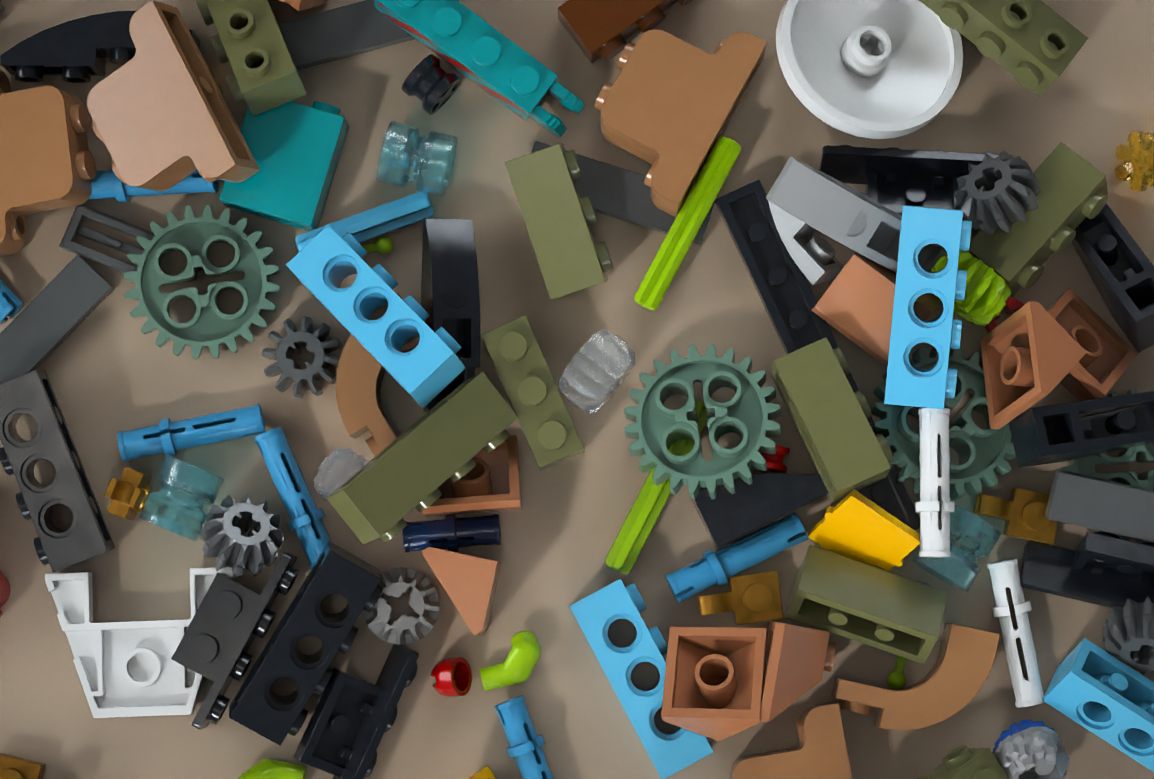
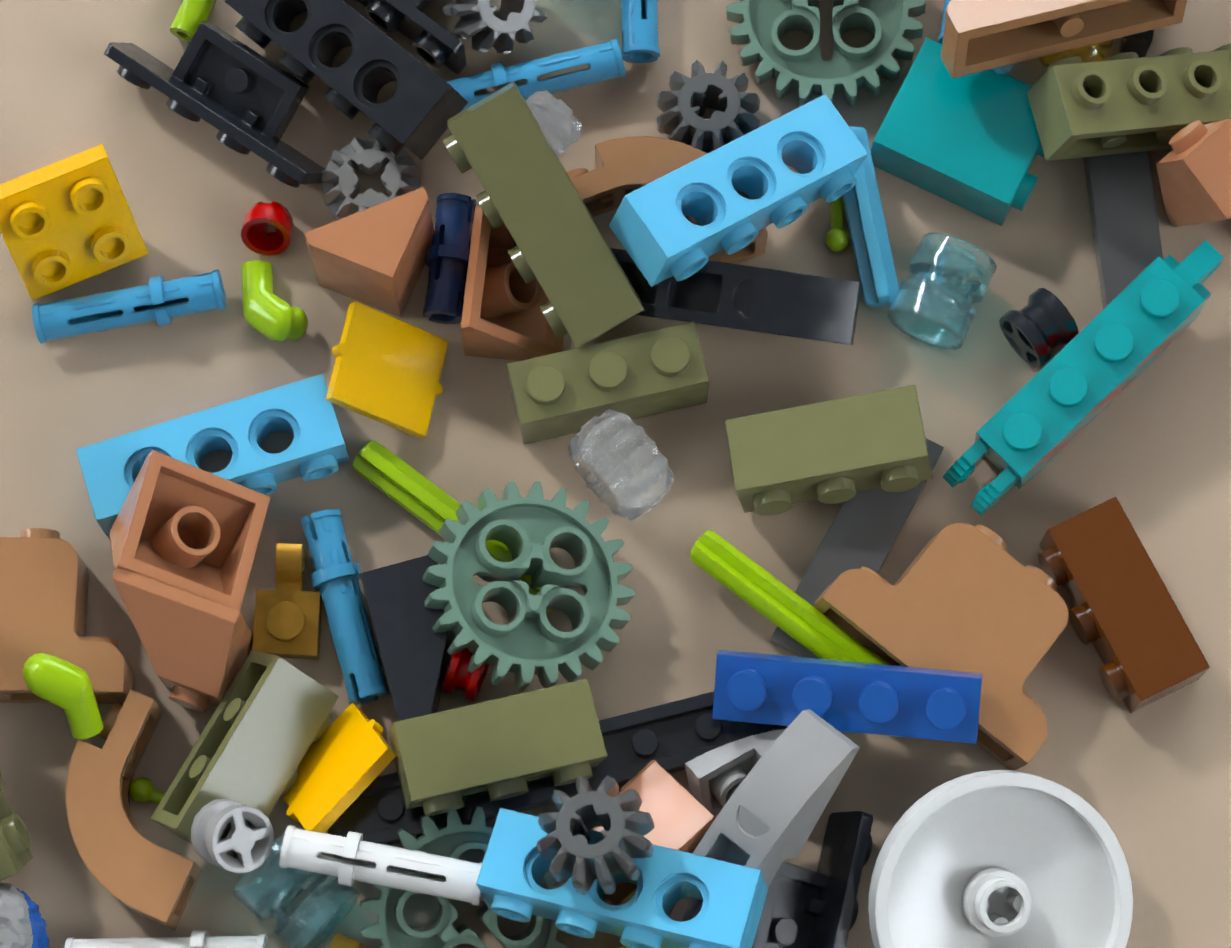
camera: 95 degrees right, 10 degrees down
(552, 561) = (387, 370): none -> yellow piece
(744, 175) = (848, 695): none -> blue plate
(847, 743) = (67, 688): none -> lime arm
(917, 331) = (569, 836): none -> dark grey gear
(930, 585) = (246, 843): none -> light grey wheel

